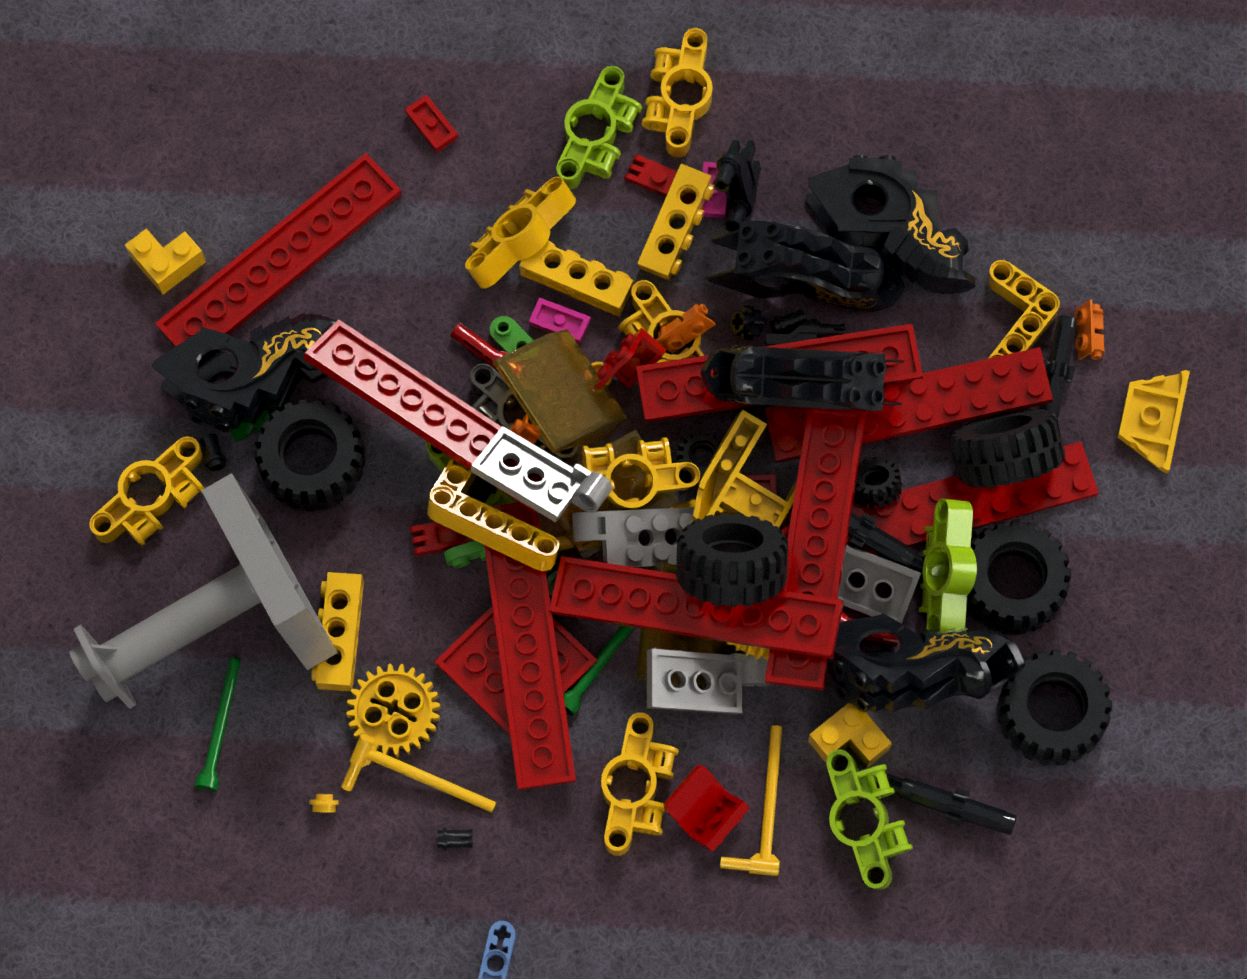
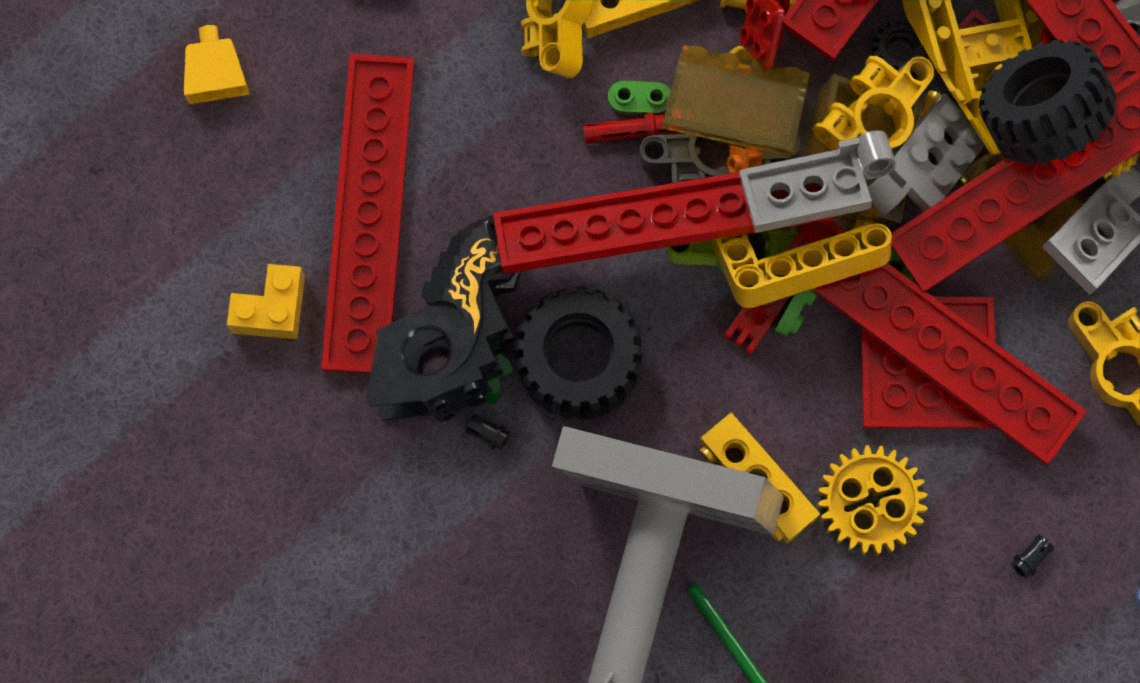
camera: 45 degrees left, 5 degrees up
(141, 521) = (473, 479): yellow piece -> none
(277, 89) = (212, 69): none -> yellow torso
(323, 803) = (897, 633): yellow plate -> none
(366, 751) = (892, 554): yellow bar -> none
(554, 318) = (662, 45): dark pink plate -> none
(573, 697) = (993, 290): green piece -> none

